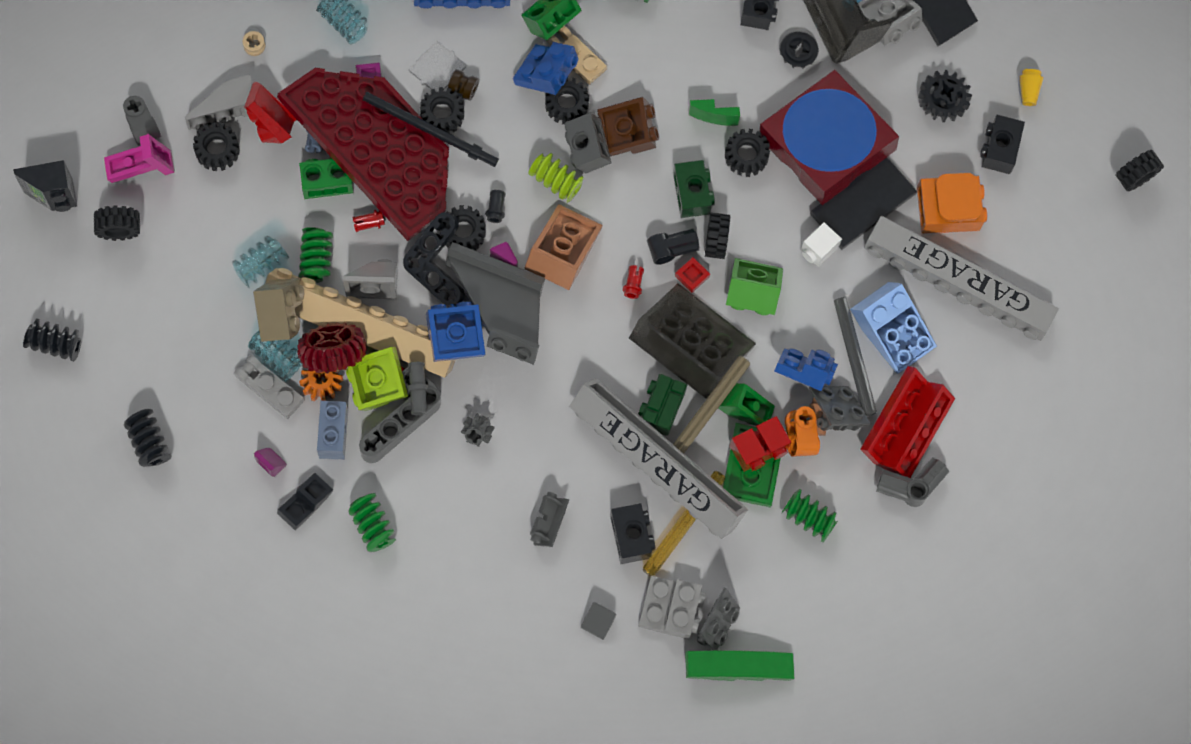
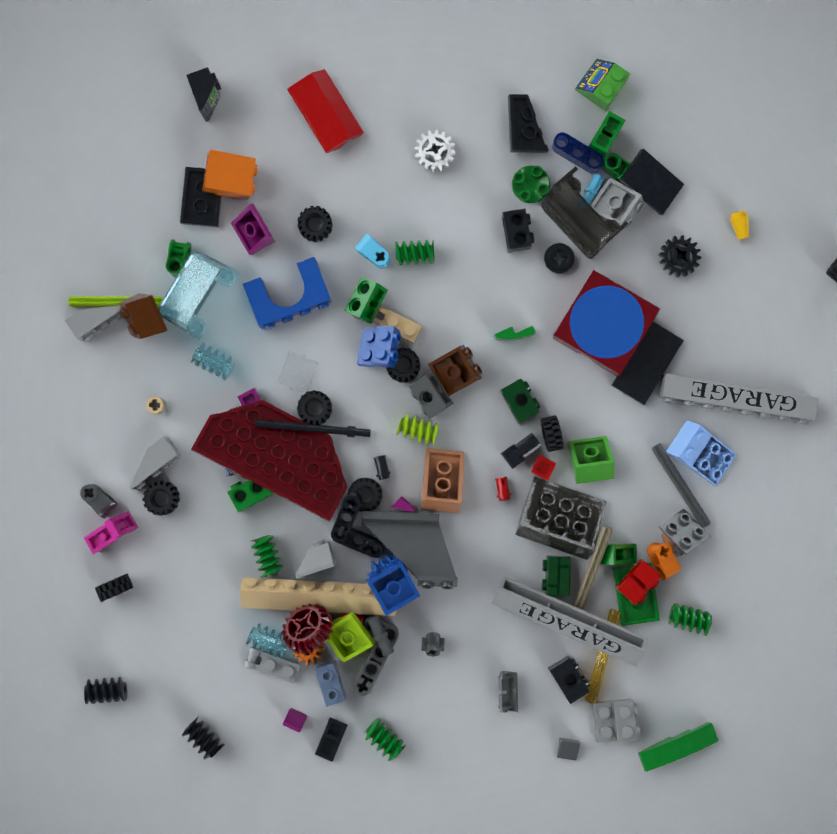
camera: 10 degrees left, 15 degrees up
(48, 185) = (54, 578): black slope -> none
(259, 259) = (228, 575): clear light blue piece -> none
(269, 115) = (189, 465): red slope -> none
(276, 309) = (256, 618): dark tan brick -> none
(368, 221) = (293, 514): red pin -> none
(463, 84) = (322, 381): dark brown wheel -> none
(722, 615) = (652, 730): dark grey hinge -> none
(750, 139) = (561, 356): black tyre -> none
(811, 371) = (651, 513): blue plate -> none
(820, 245) = (628, 410): white brick -> none
(907, 423) = (736, 523): red slope -> none
(926, 481) = (747, 574): dark grey piece -> none
(951, 203) = (712, 342): orange brick -> none
(1010, 133) = (740, 270): black brick -> none

